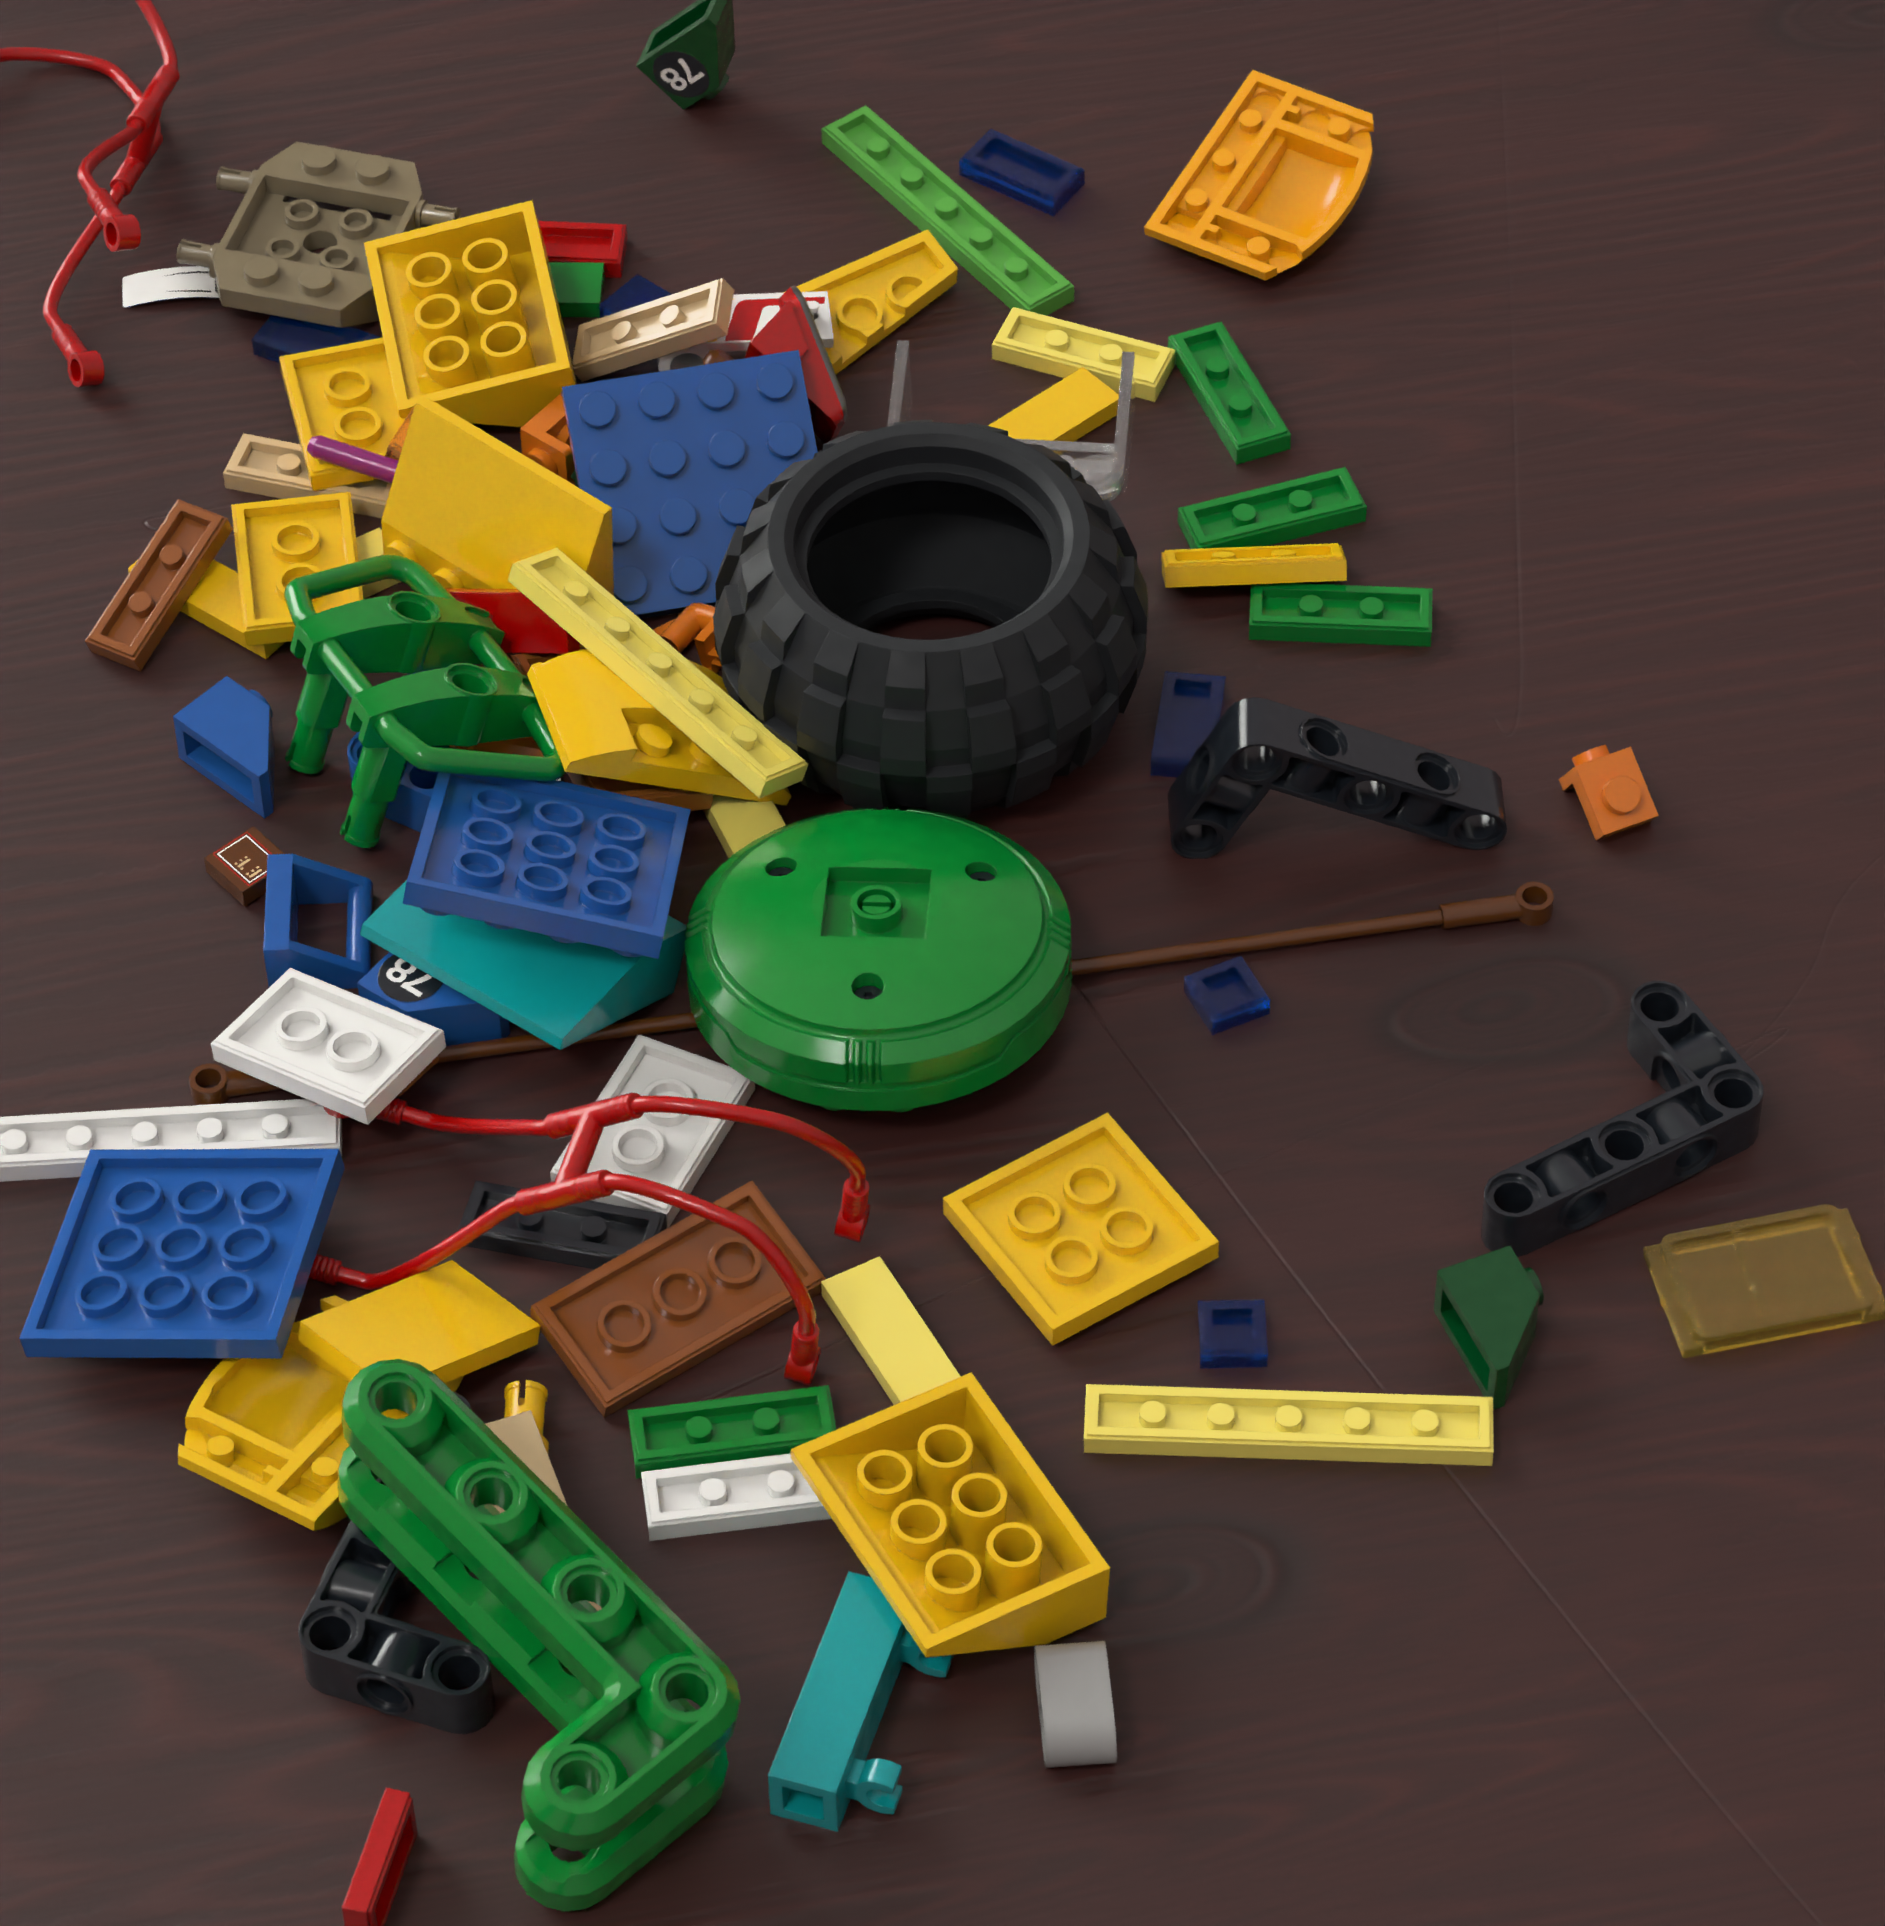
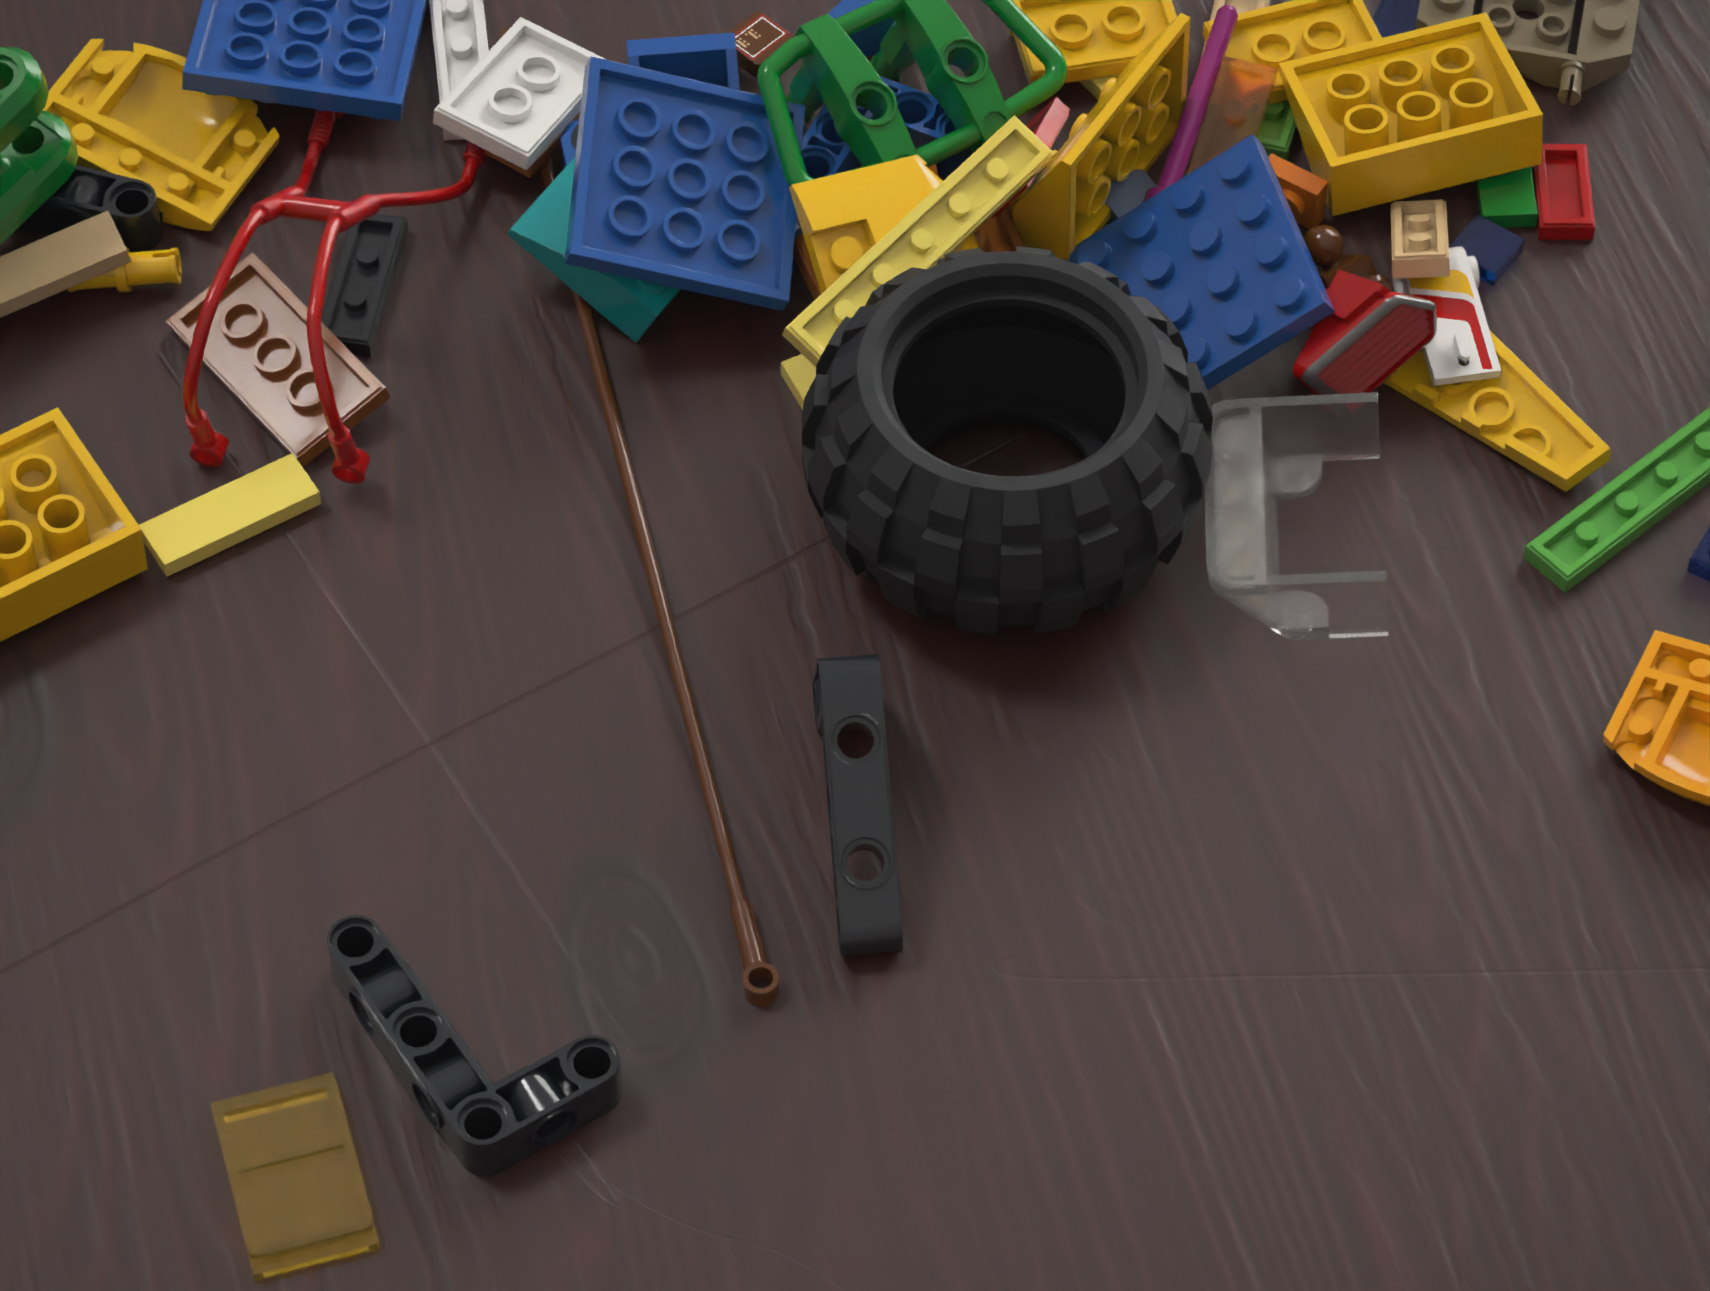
camera: 85 degrees right, 5 degrees up
(431, 1319) = (215, 175): yellow tile -> none
(664, 1145) = (470, 335): white tile -> none
(727, 1497) = (78, 390): white tile -> none
(728, 1428) = (145, 411): green tile -> none
(879, 959) = (629, 454): green piece -> none
(1063, 410) = (1342, 544): yellow tile -> none
(1064, 347) = (1478, 599): light yellow tile -> none
(1080, 1228) = (349, 632): yellow plate -> none
(1186, 716) = (976, 699): clear blue tile -> none
(1226, 995) = (636, 739): clear blue tile -> none
(1229, 393) = (1440, 720): green tile -> none
(1232, 1334) = (239, 754): clear blue tile -> none
(1254, 565) = (1184, 739): yellow tile -> none
(1274, 512) = (1271, 760): green tile -> none
(1289, 1425) = (136, 802): light yellow tile -> none
(1341, 614) = (1138, 820): green tile -> none
(1490, 1317) = (228, 940): dark green slope -> none
(1610, 790) = (901, 1039): orange bracket -> none

